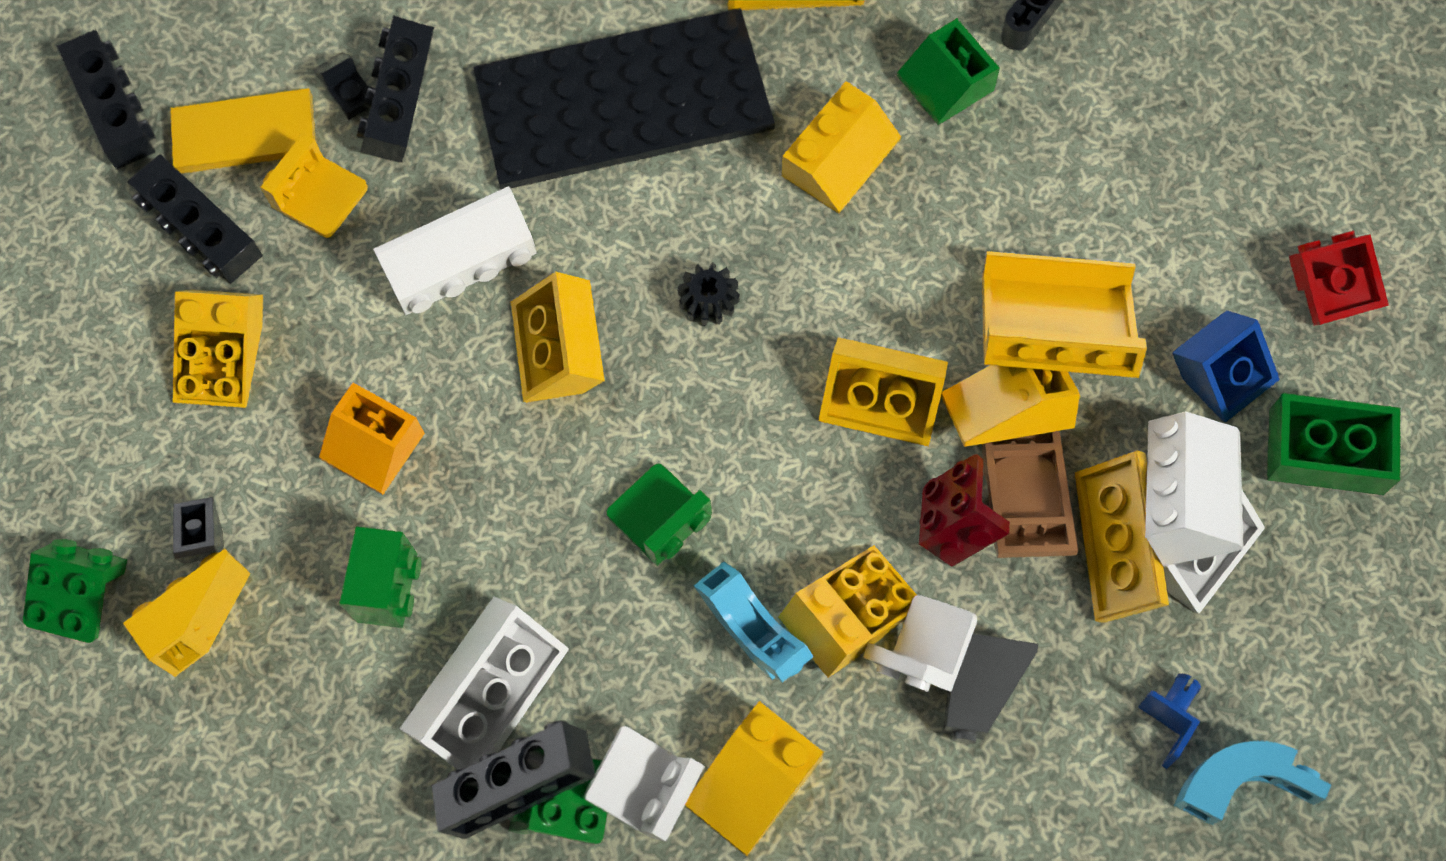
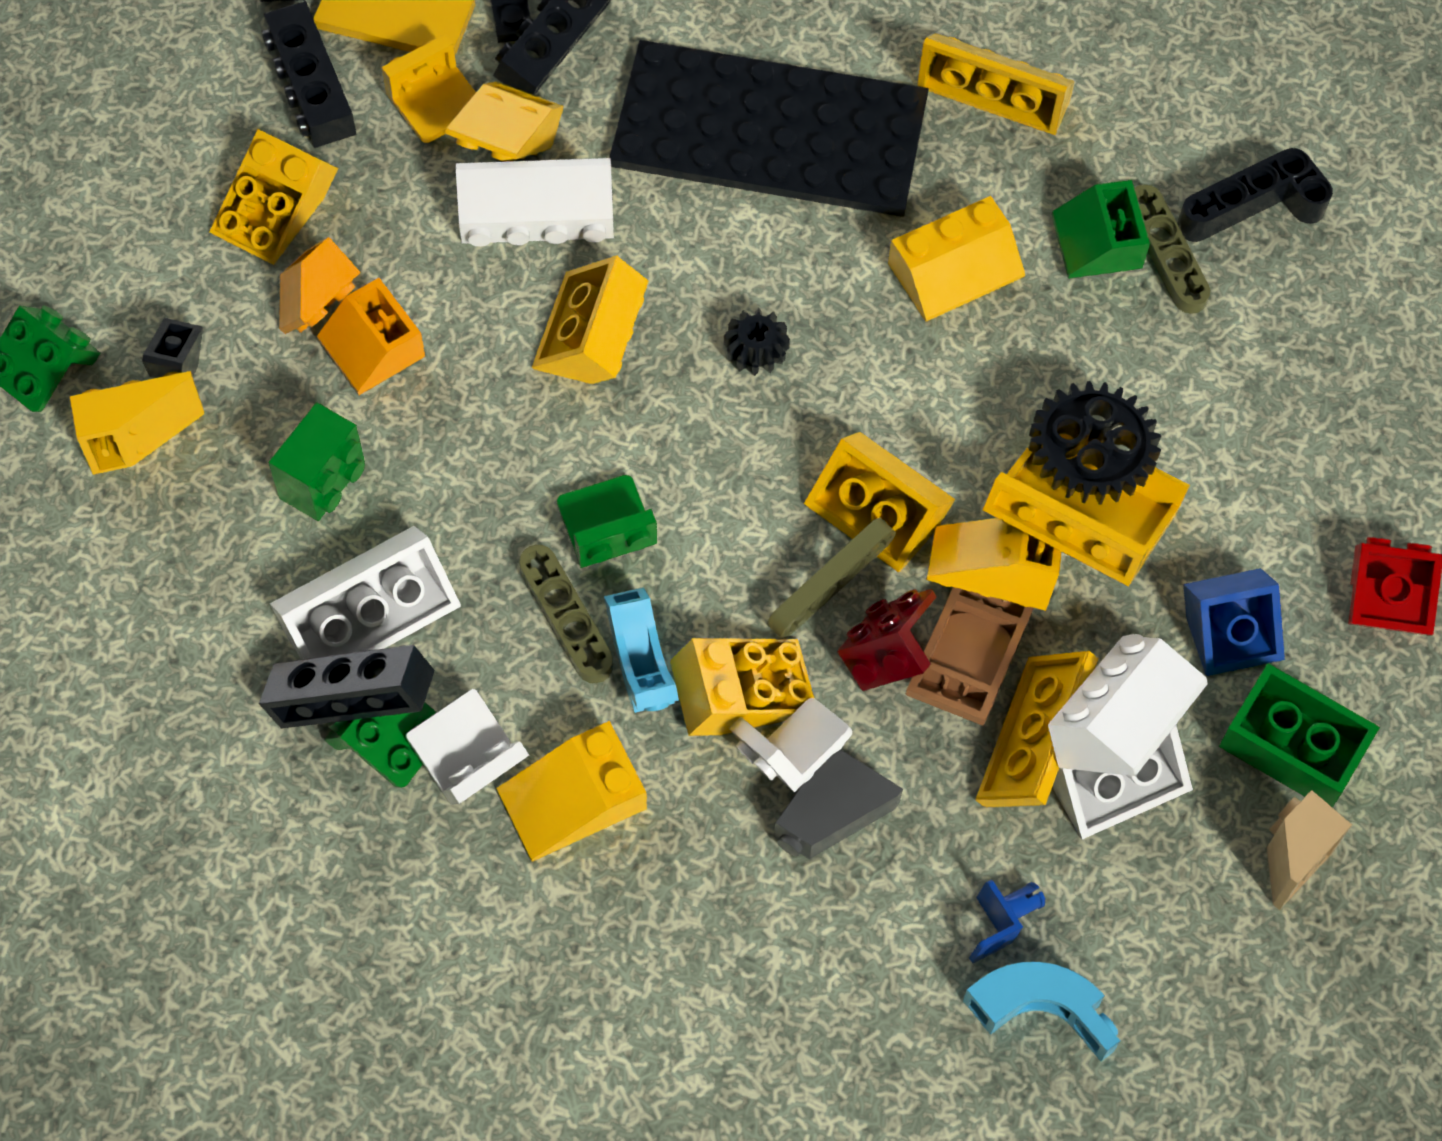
camera: 20 degrees right, 5 degrees down
(294, 414) = (314, 282): none -> light orange slope
(396, 191) = (506, 122): none -> yellow slope
(662, 617) = (571, 611): none -> olive beam
(879, 479) = (831, 578): none -> olive beam
(1013, 245) = (1073, 416): none -> black gear
(1015, 60) = (1172, 248): none -> olive beam
(1388, 541) = (1301, 843): none -> tan slope

